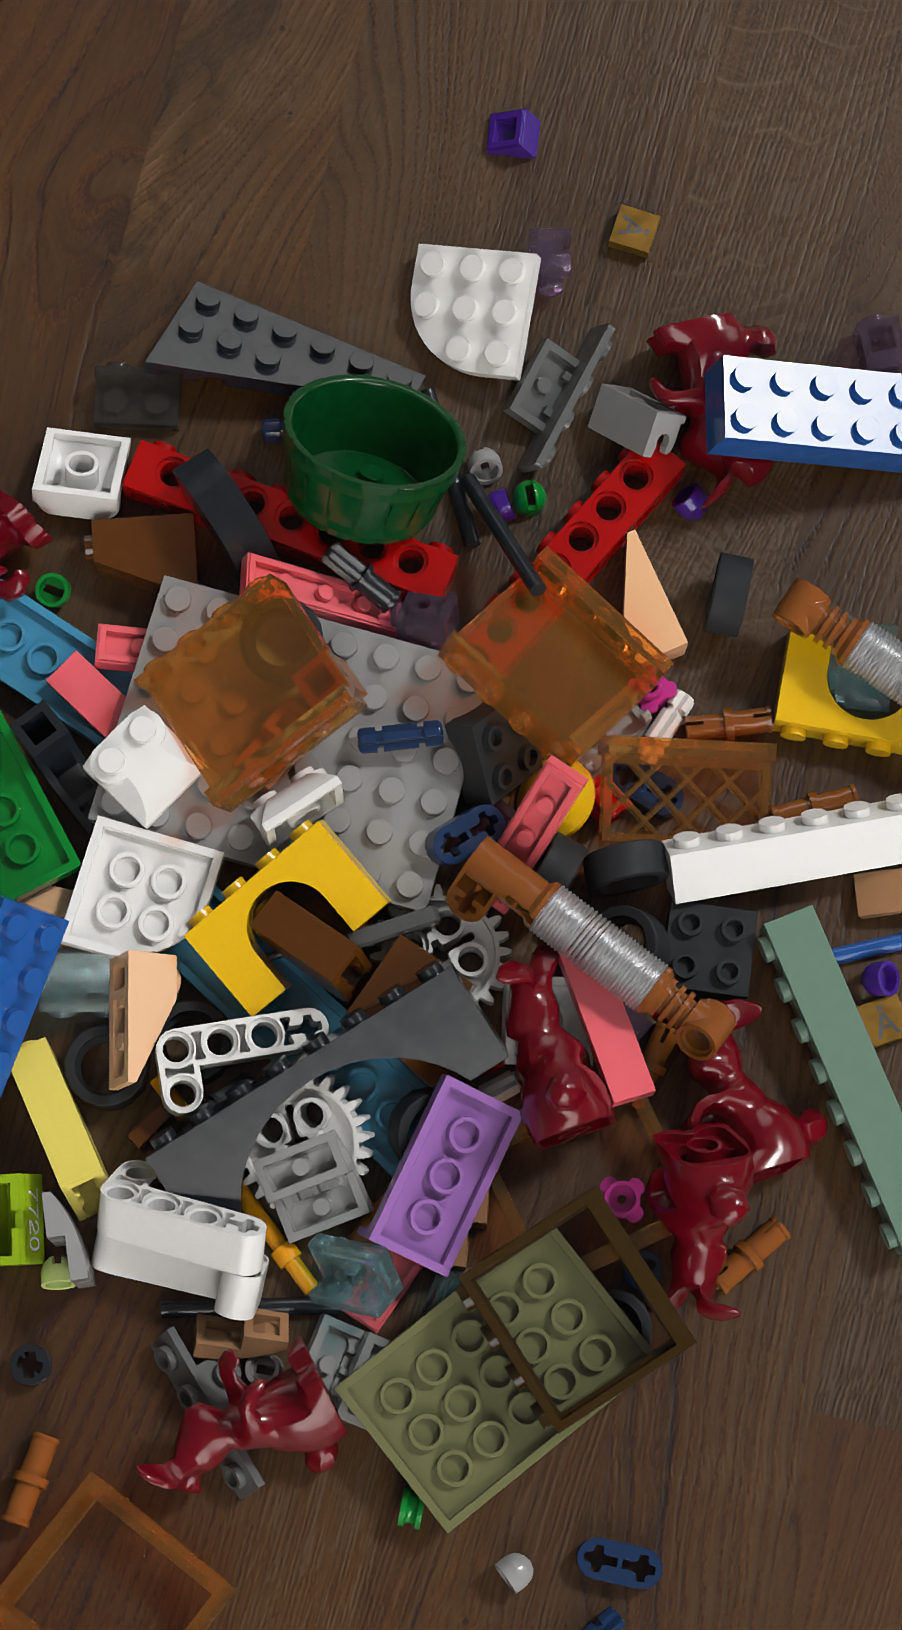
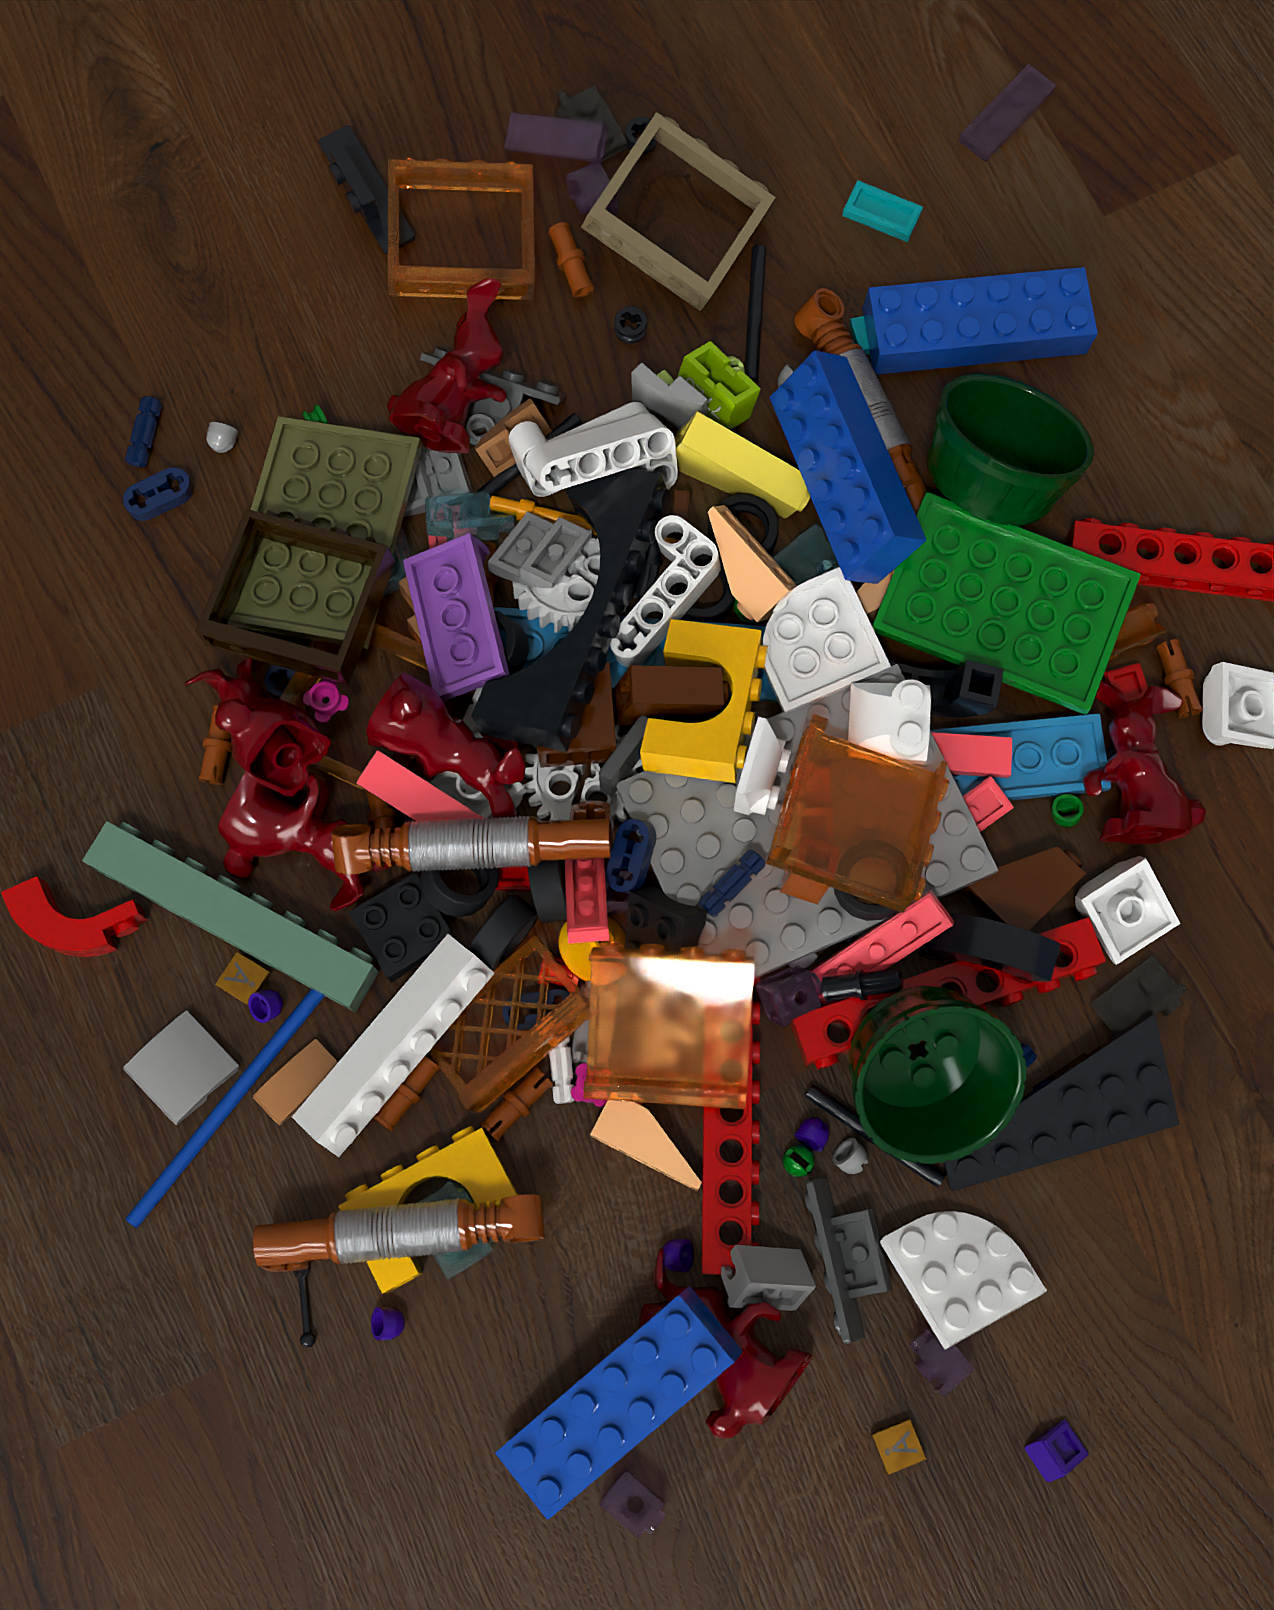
camera: 145 degrees right, 0 degrees up
(503, 535) = (788, 1101): black bar -> none
(729, 594) = (589, 1197): black tyre -> none

